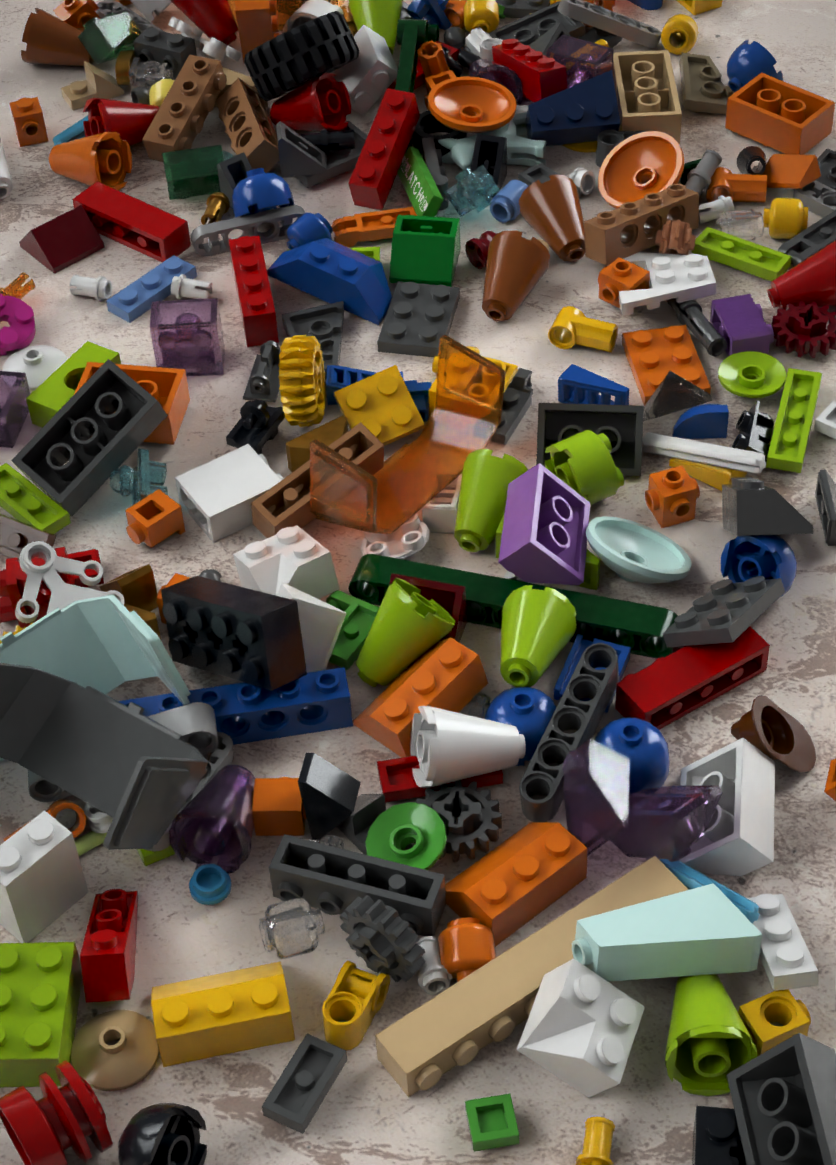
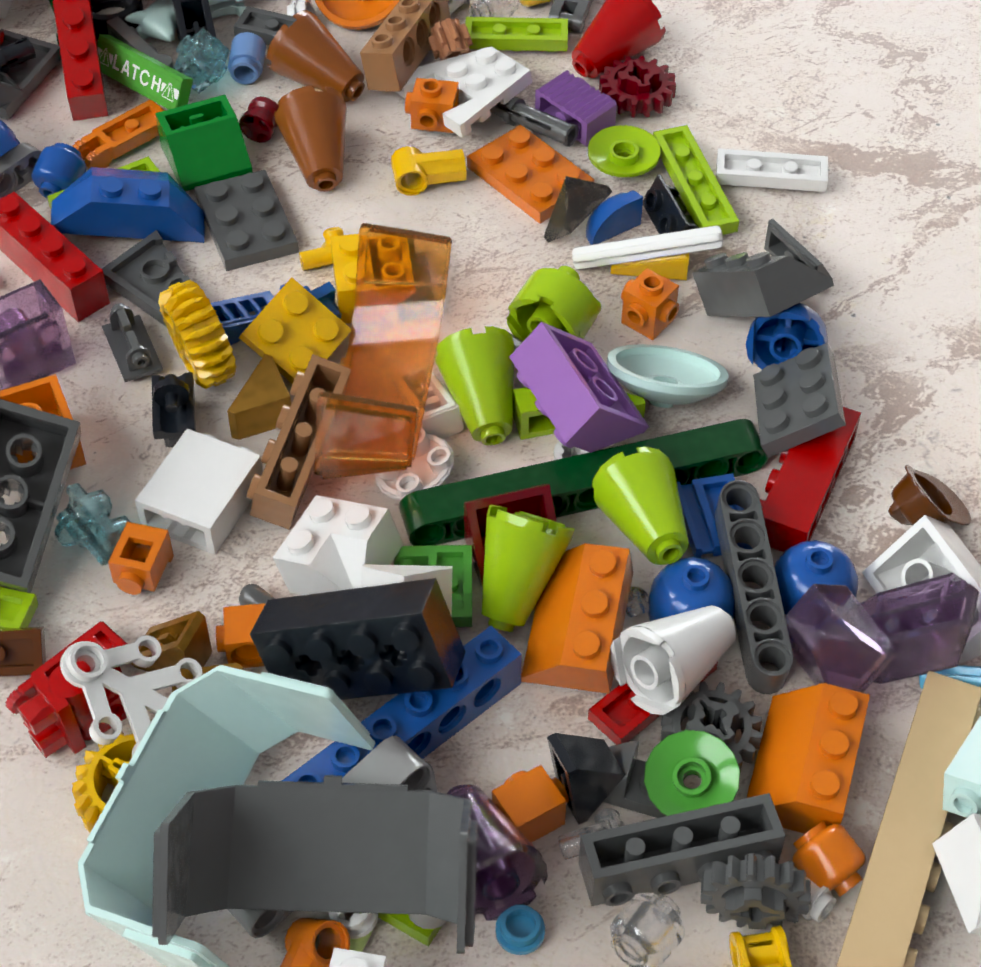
camera: 35 degrees left, 5 degrees up
(583, 387) = (477, 228): blue slope -> none
(618, 422) = (497, 274): dark grey slope -> none

